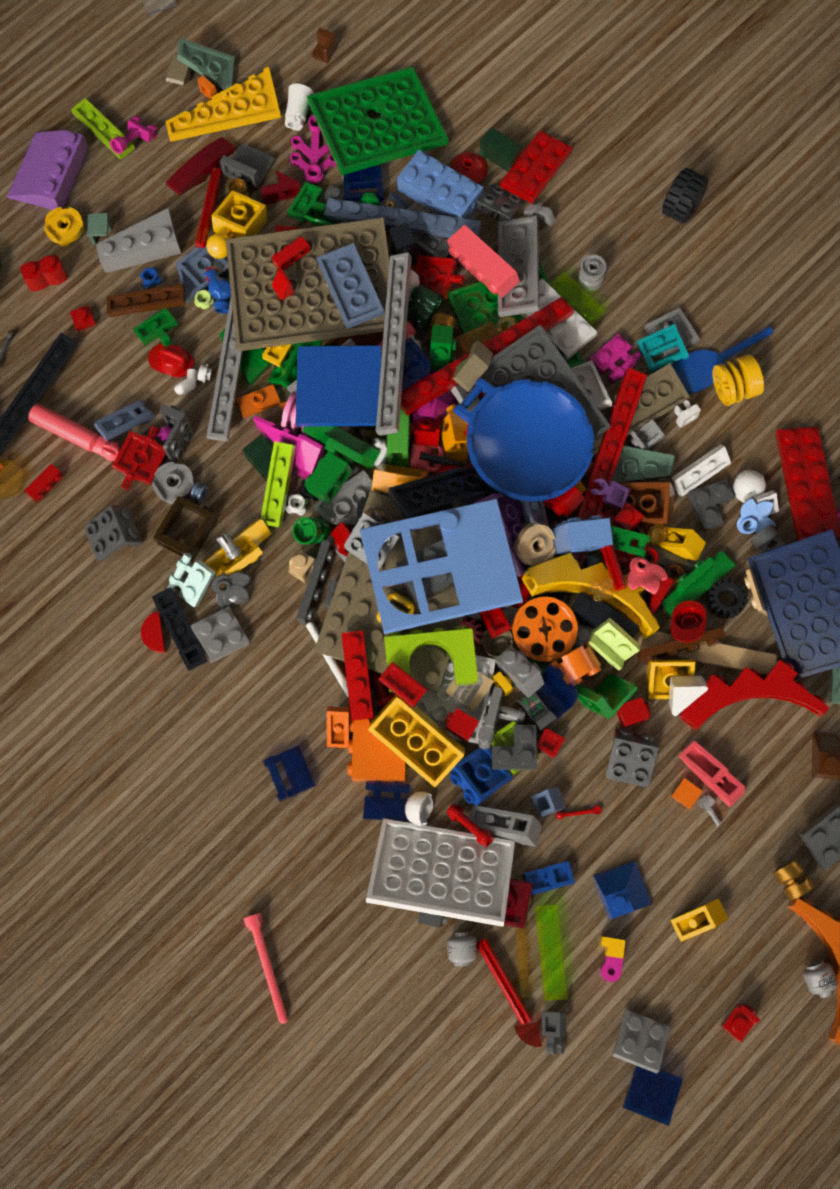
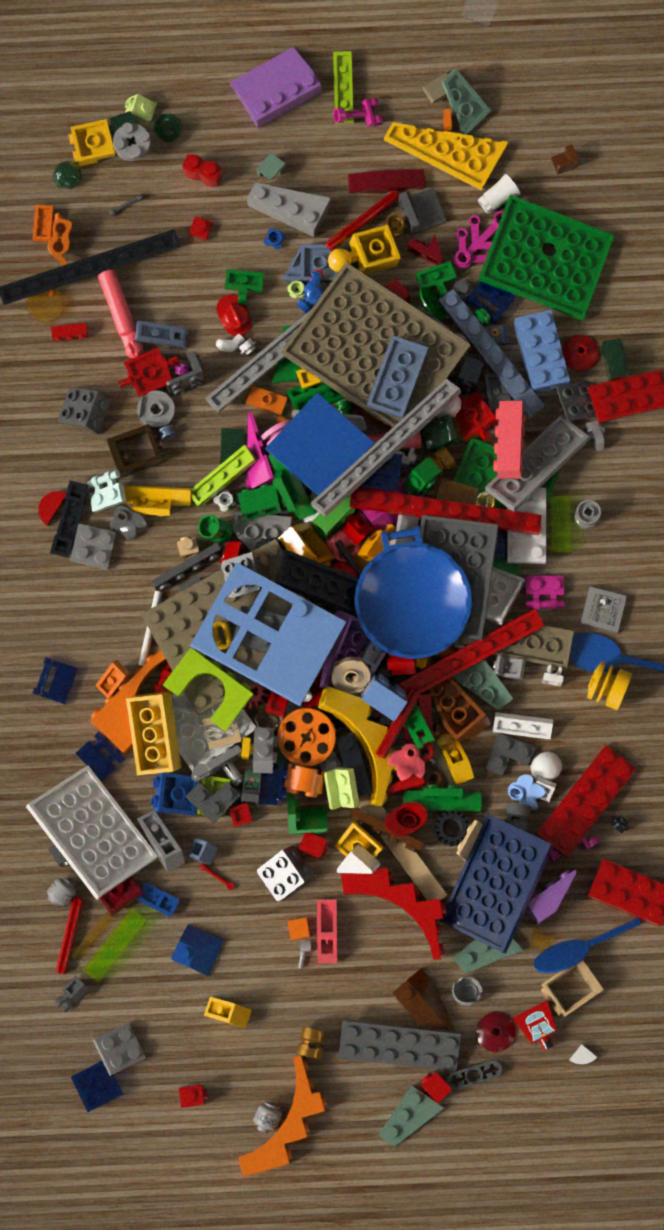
camera: 40 degrees right, 5 degrees up
(66, 235) = (245, 153): yellow plate -> none
(146, 300) = (254, 255): reddish brown plate -> none
(228, 545) = (150, 491): light grey pin -> none
(282, 285) = (351, 334): red slope -> none
(291, 253) = (379, 315): red piece -> none
(357, 675) = (153, 656): red plate -> none
(402, 684) = (172, 689): red plate -> none
(419, 807) = (116, 779): white hair -> none
(460, 724) = (191, 750): red brick -> none
(473, 367) = (420, 514): dark tan slope -> none
(483, 836) = (138, 835): red bar -> none
(529, 1034) = (55, 982): clear red tile -> none
(601, 590) = (366, 745): clear yellow piece -> none
(613, 493) = (441, 687): medium lavender plate -> none
(613, 958) = (151, 984): leg -> none
(629, 517) = (436, 713): red plate -> none
(659, 343) = (585, 610): teal plate -> none

